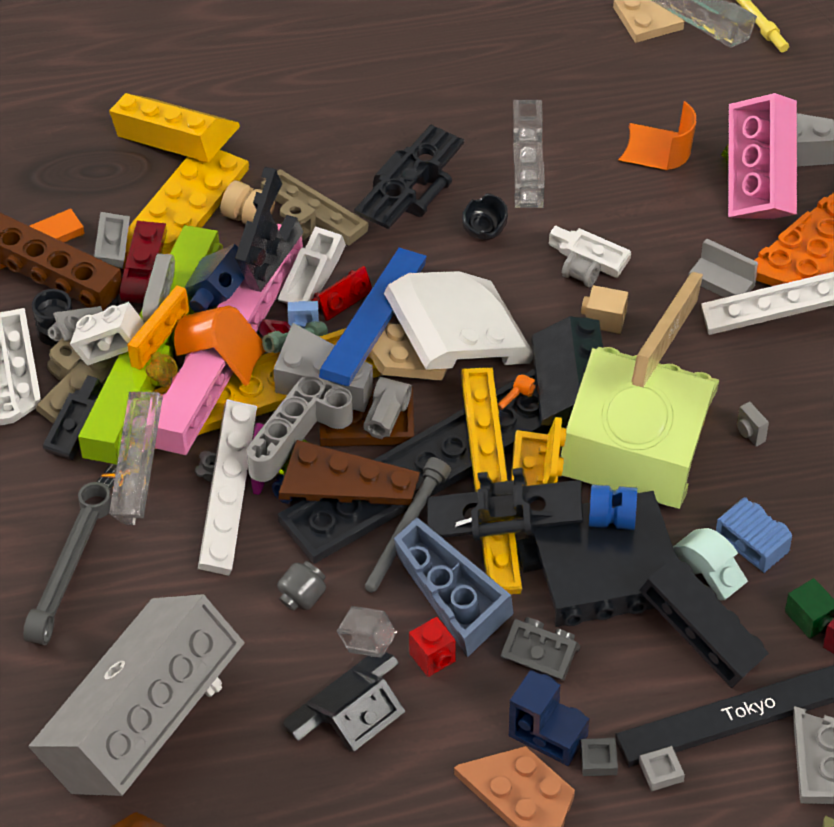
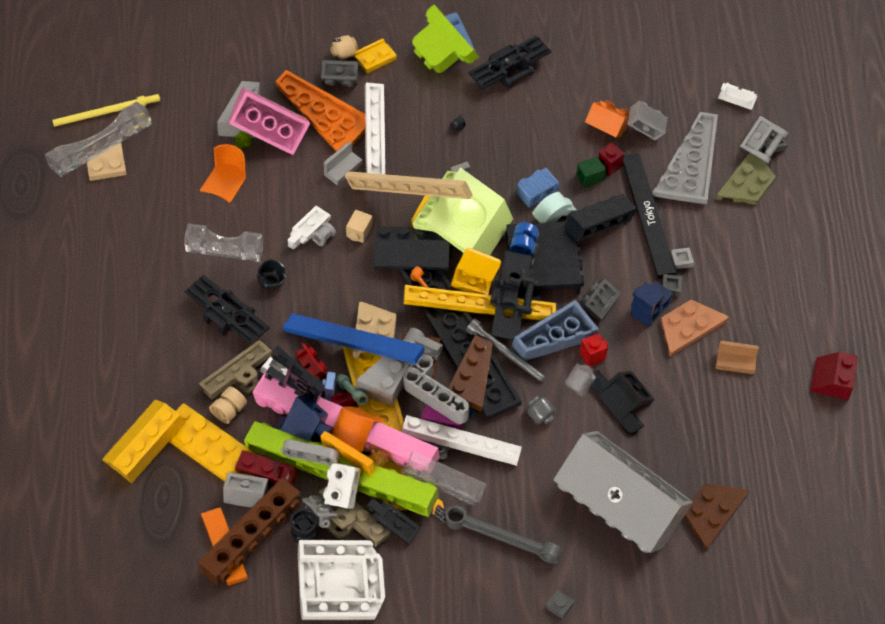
camera: 85 degrees left, 5 degrees up
(455, 319) = (359, 300): white wedge -> none

